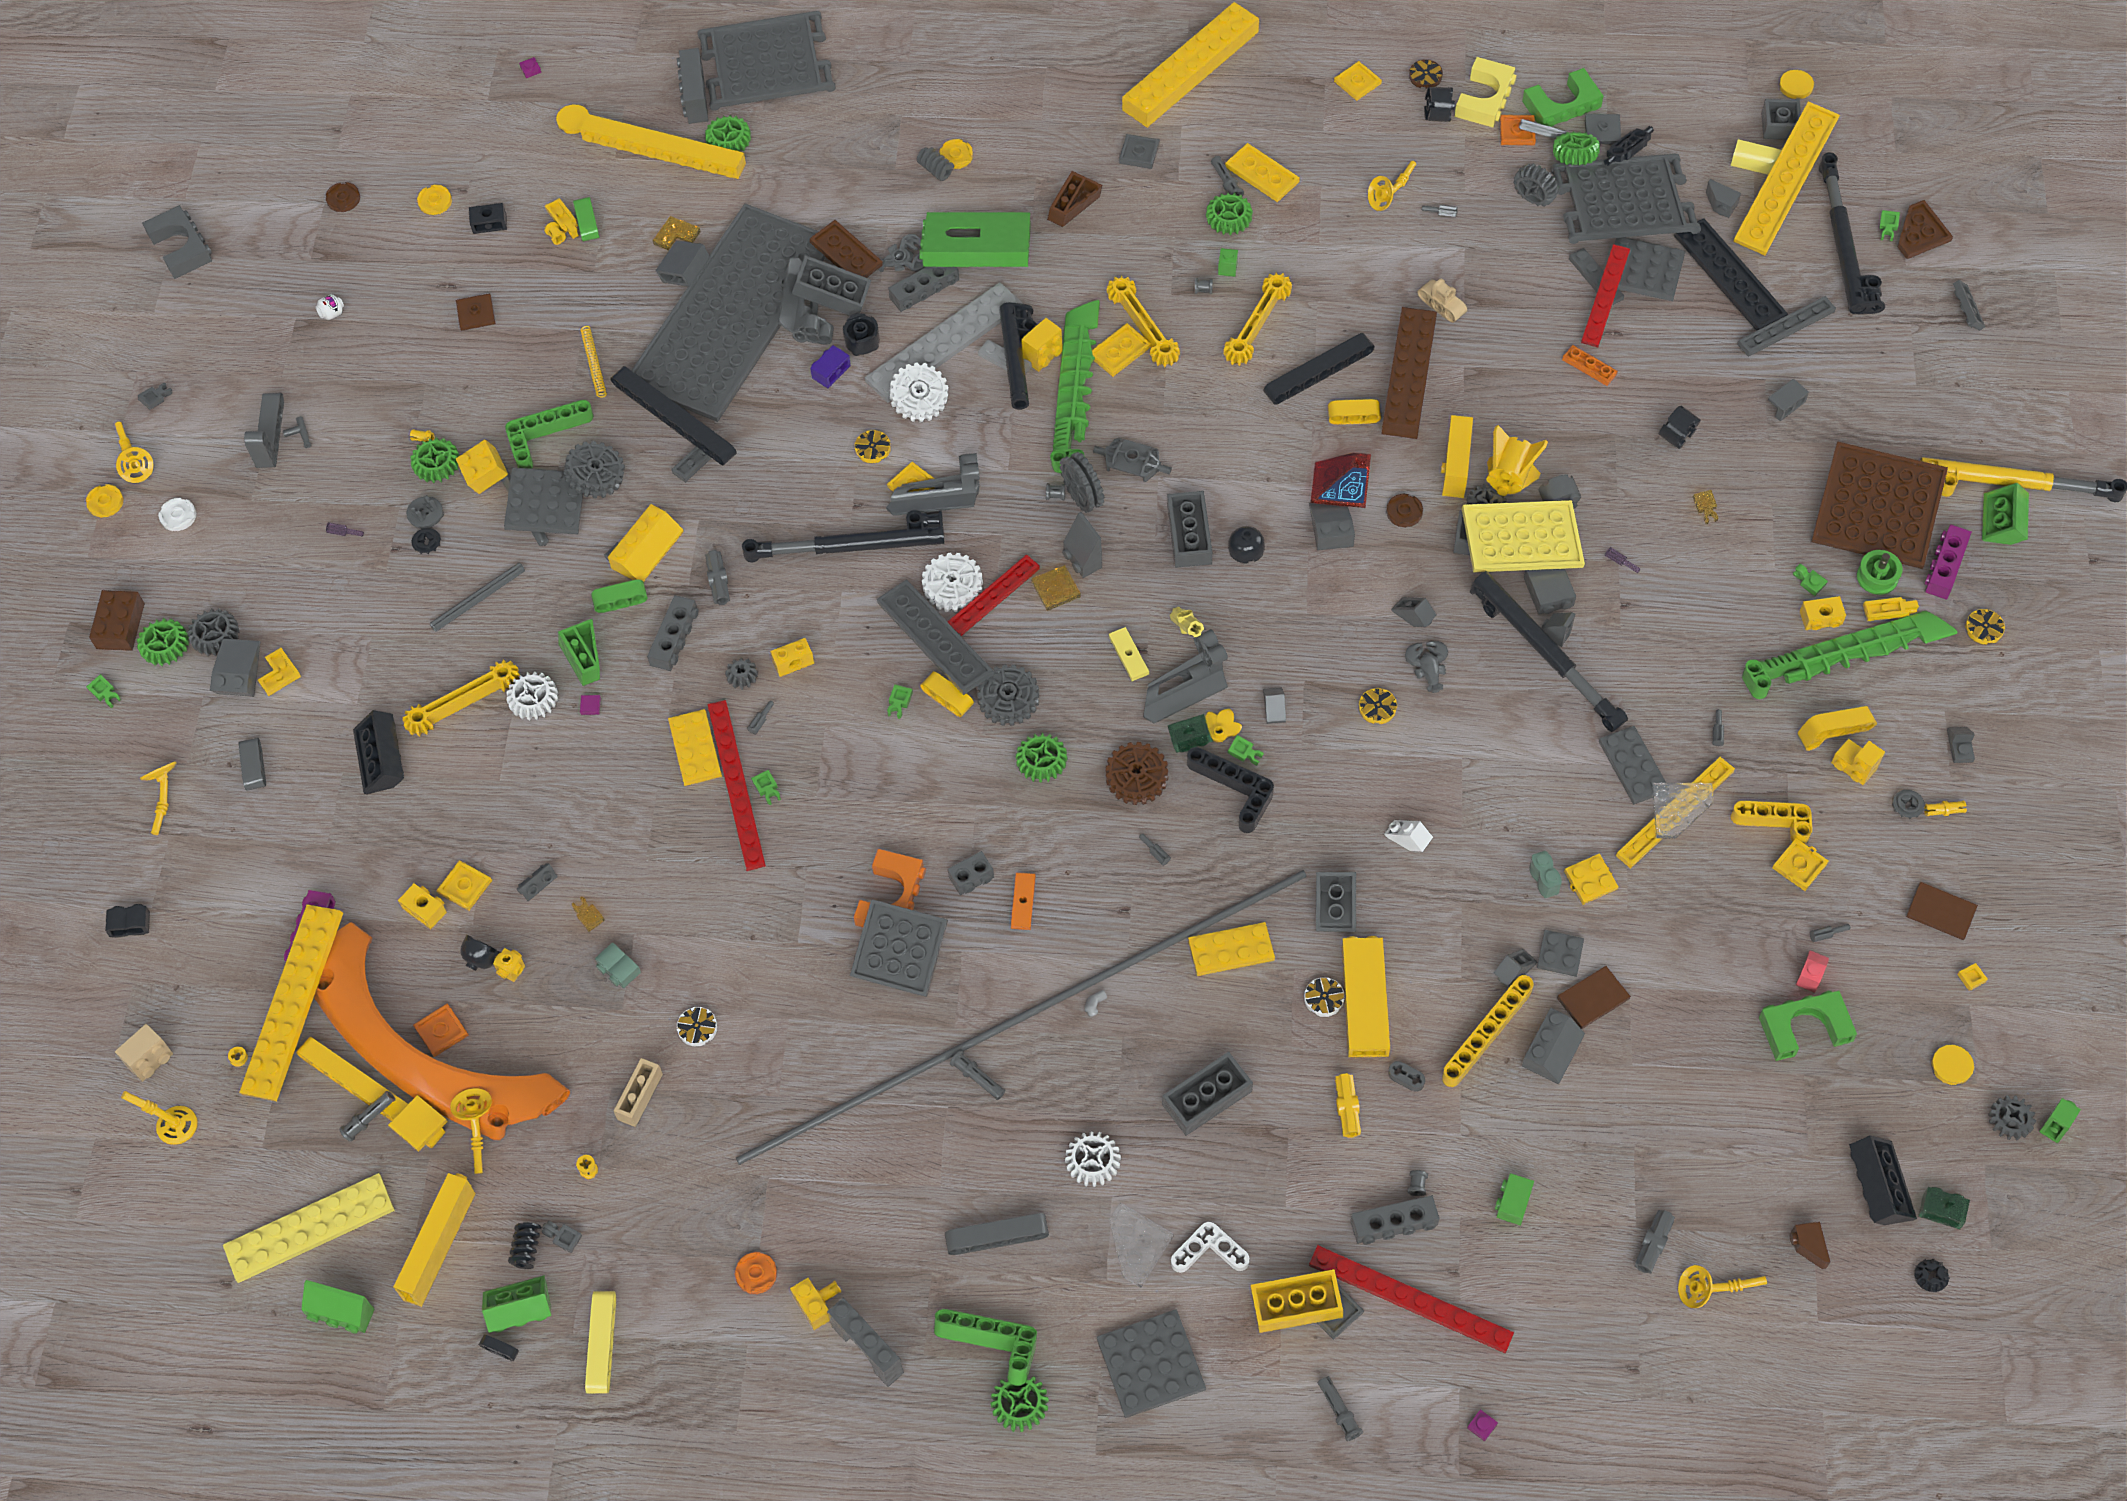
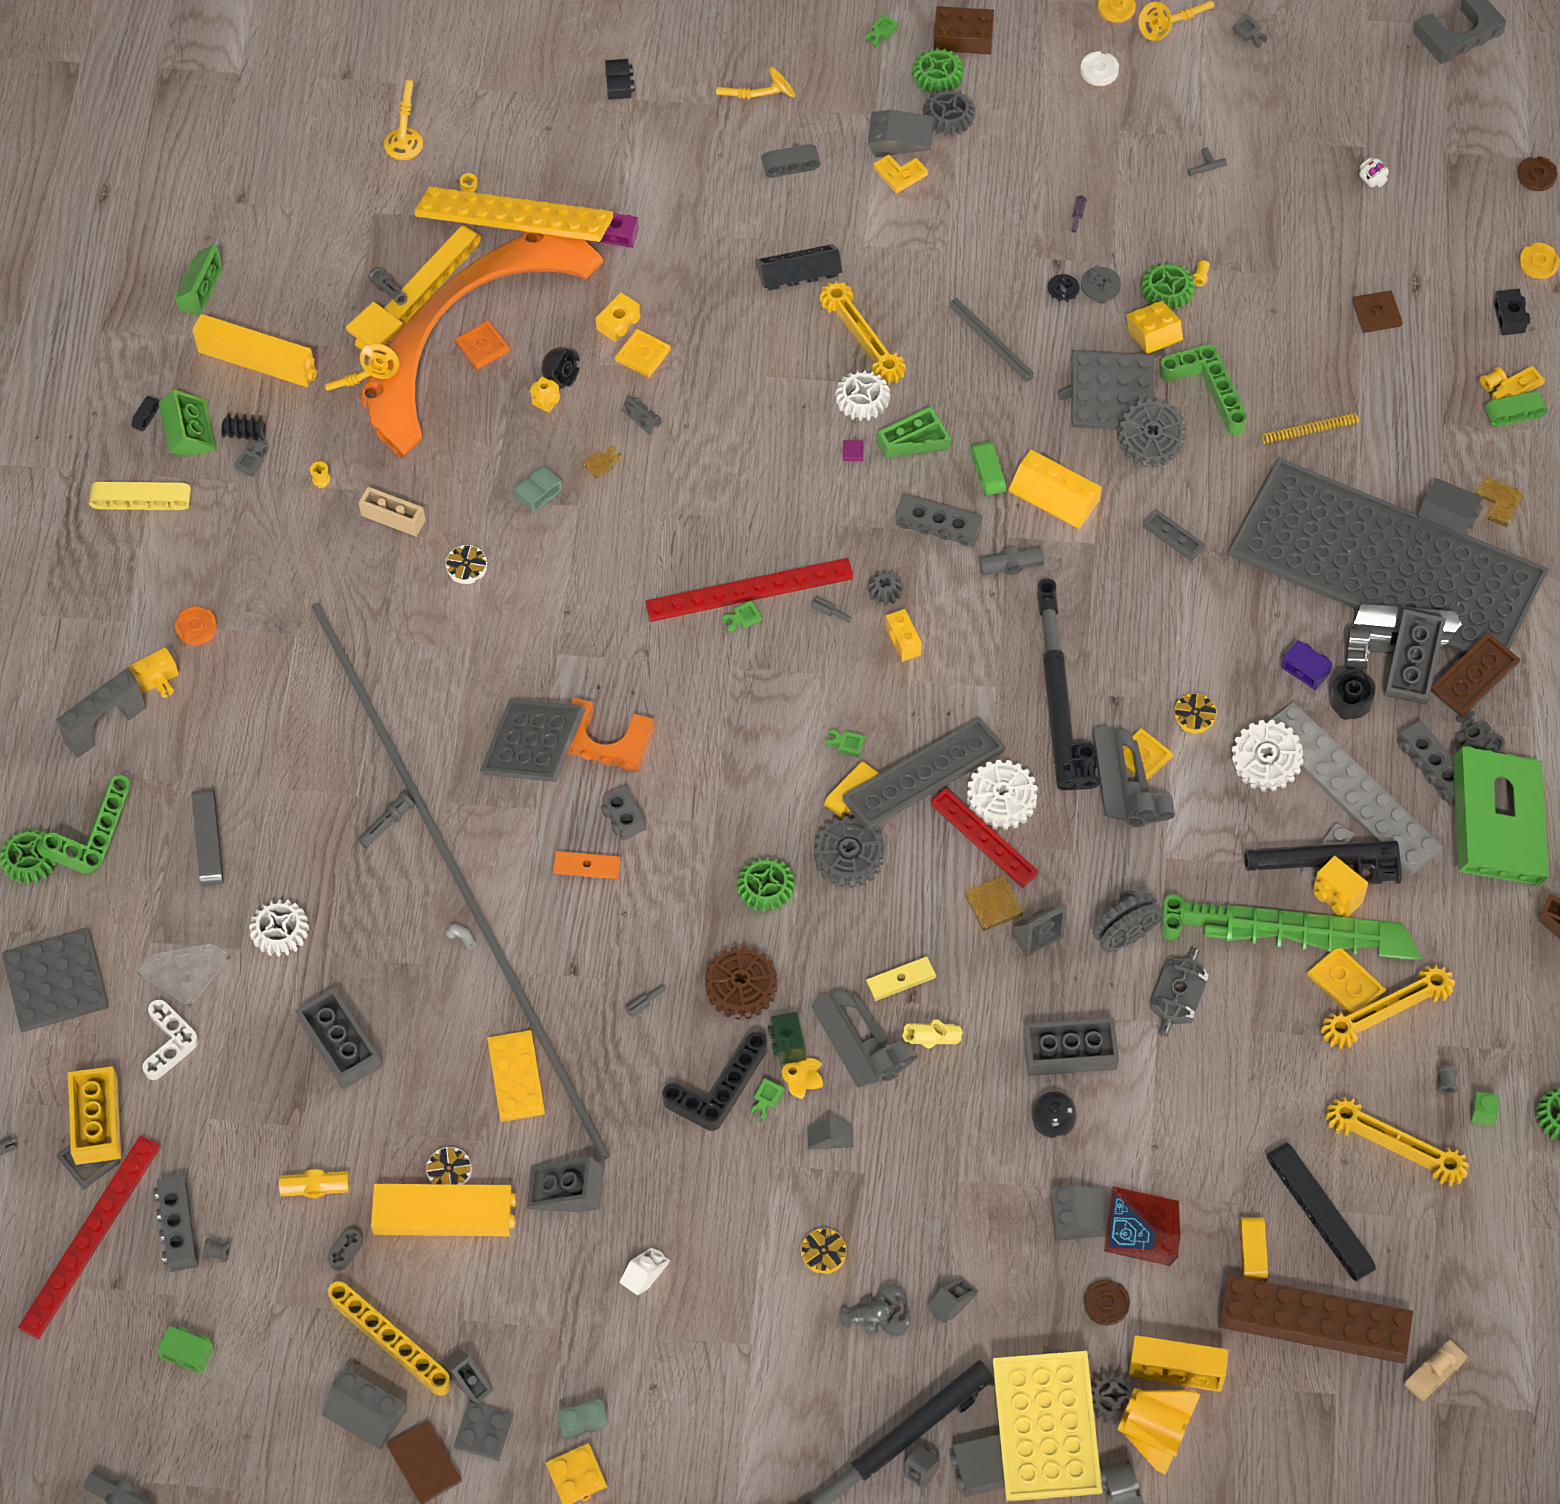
camera: 90 degrees right, 0 degrees up
(144, 1053) = (471, 104): tan brick -> none
(264, 443) = (1200, 134): dark grey beam -> none
(308, 1228) = (287, 256): light yellow plate -> none
(673, 415) = (1225, 504): black beam -> none
(694, 747) = (796, 549): yellow plate -> none

